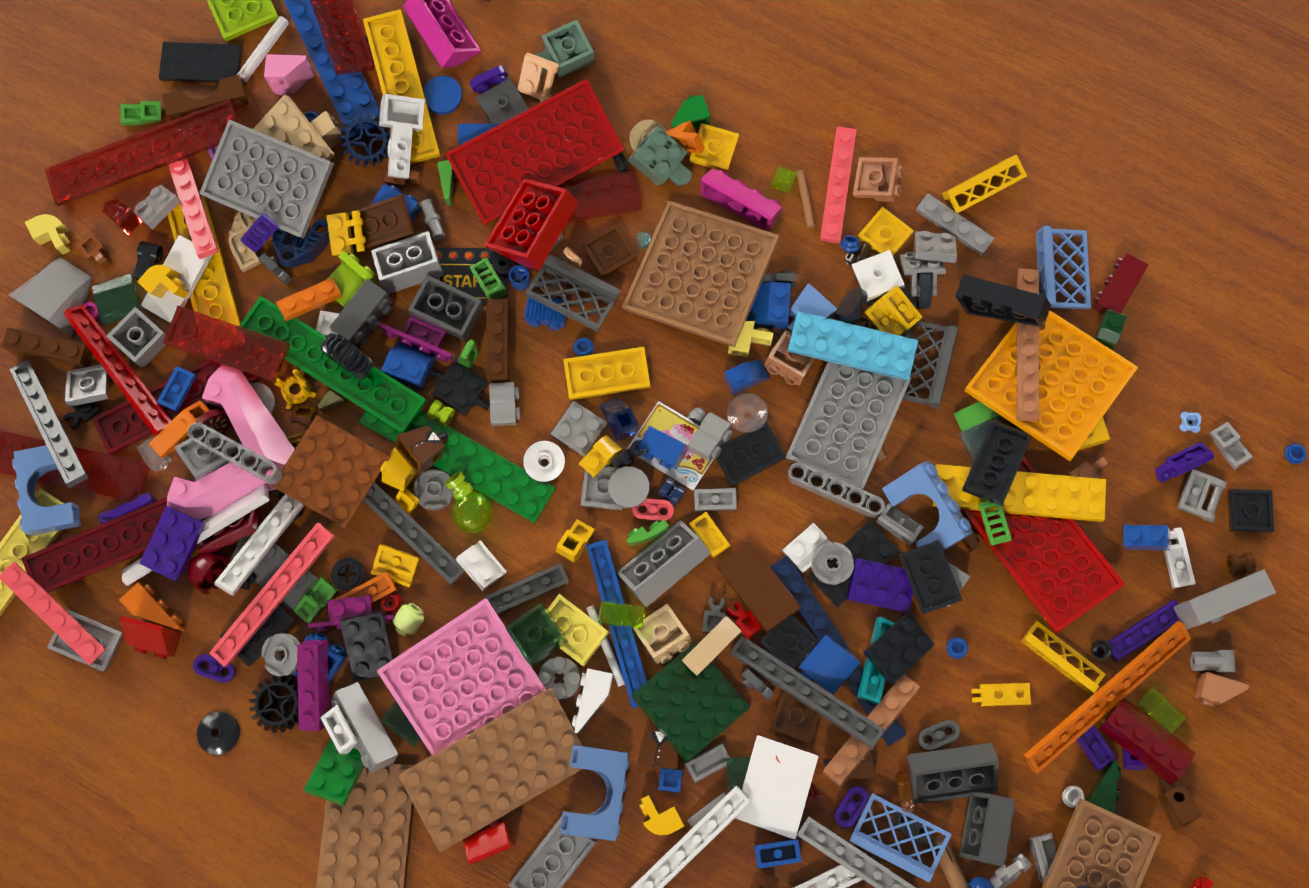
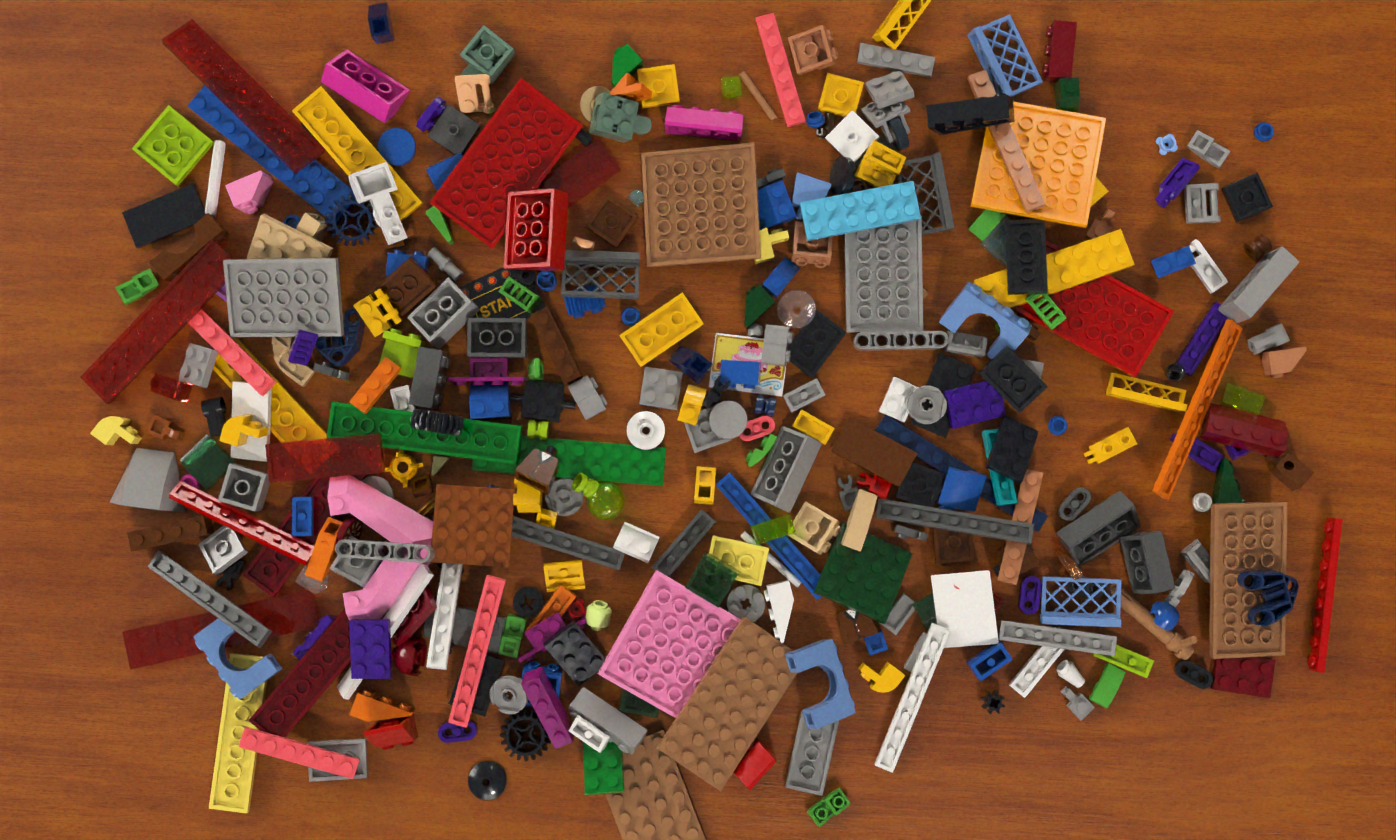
camera: 35 degrees left, 10 degrees up
(710, 391) = (756, 304): none -> dark green slope

